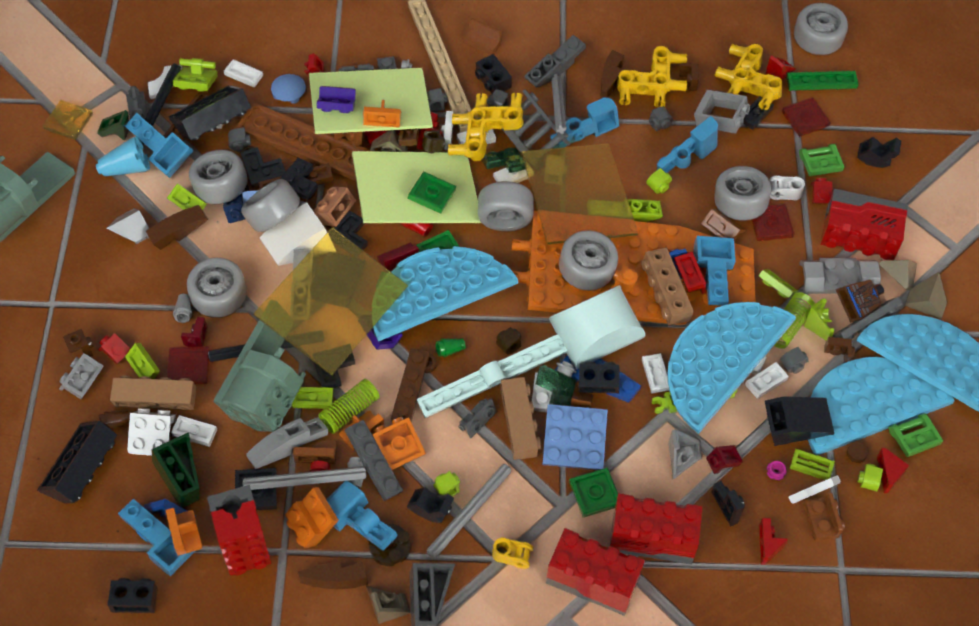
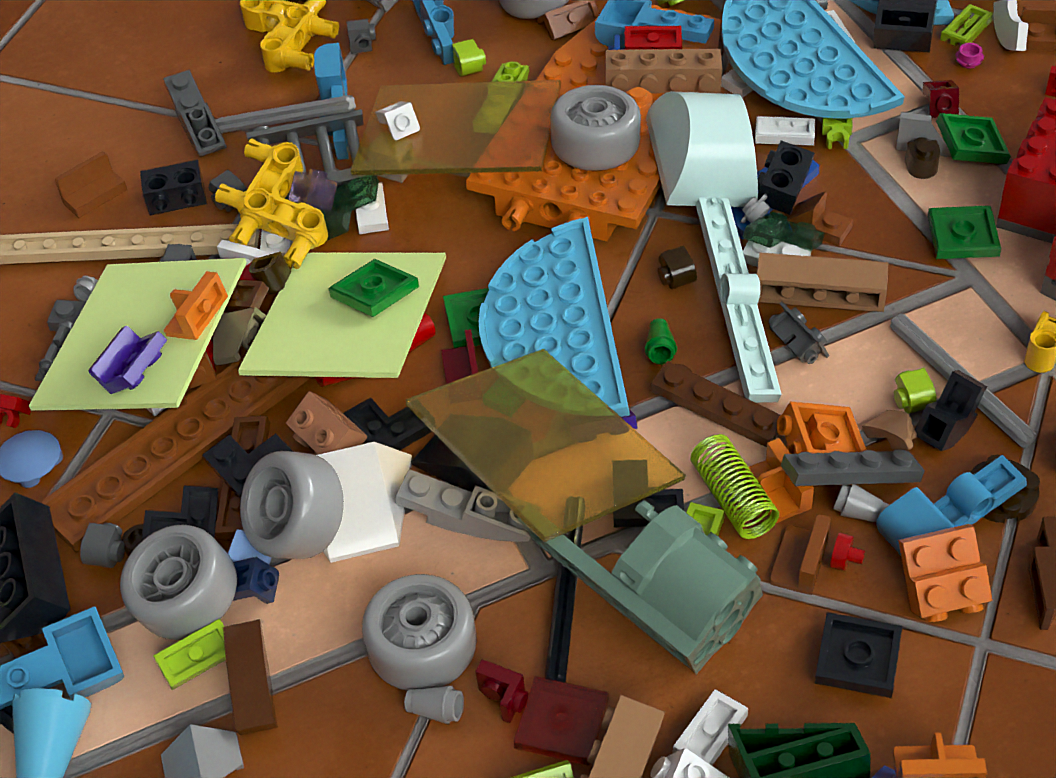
camera: 65 degrees left, 10 degrees down
(239, 530) = (976, 657): red piece -> none
(283, 440) = (781, 589): light grey slope -> none
(305, 478) = (865, 571): light grey axle -> none
(413, 477) = (894, 426): none -> medium nougat slope
(500, 139) = (313, 189): none -> clear purple brick
(505, 206) = (445, 206): light grey wheel -> none
(567, 158) = (399, 119): none -> white bracket
(575, 437) = (869, 228): medium blue plate -> none
(611, 72) = (254, 66): reddish brown slope -> none
(658, 457) = (922, 158): none -> dark brown plate
(687, 483) = (973, 138): none -> green plate
(729, 502) = (1024, 103): black plate -> none

